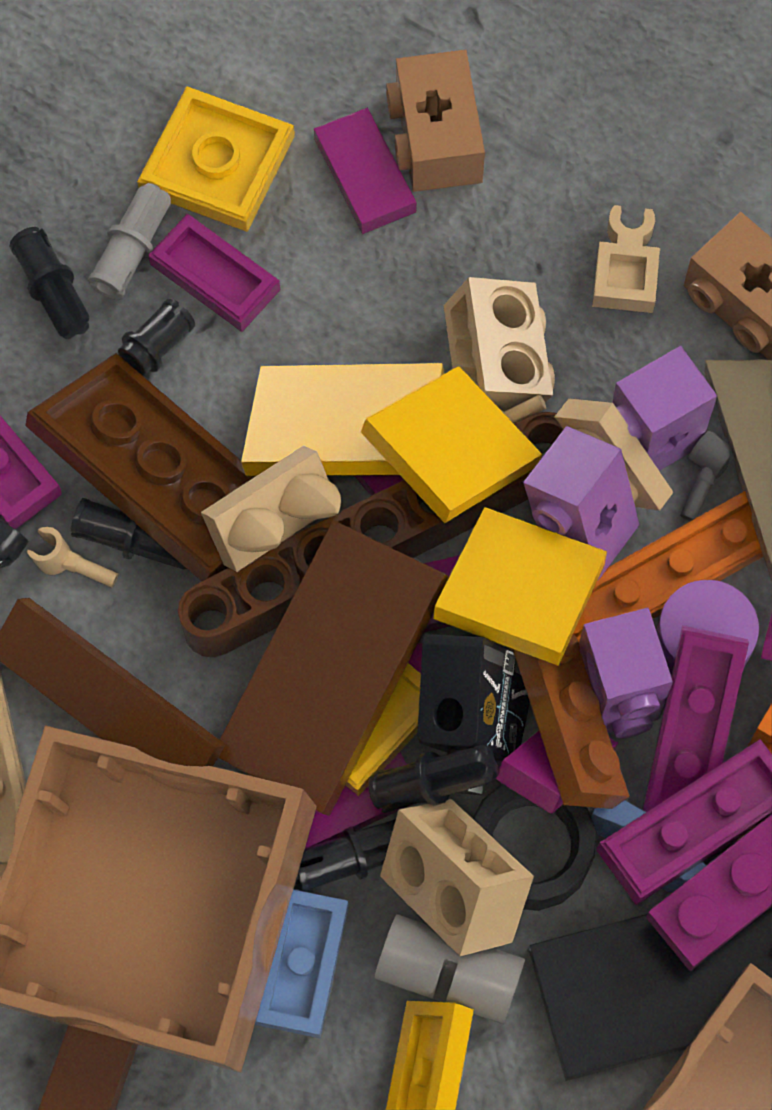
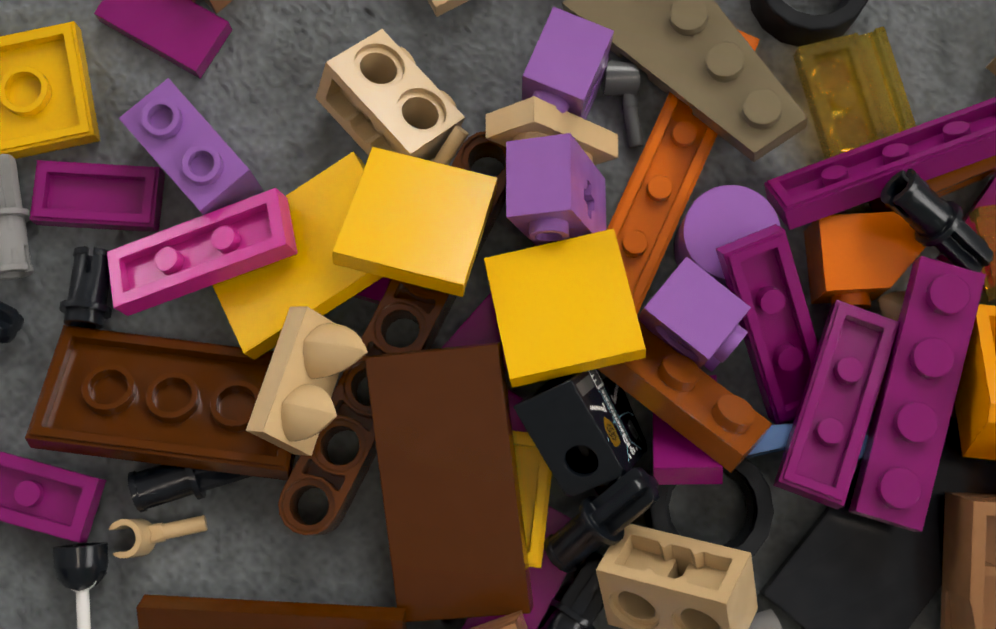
camera: 35 degrees left, 10 degrees up
(265, 363) = (201, 252): none -> dark pink plate
(312, 285) = (189, 149): none -> medium lavender brick

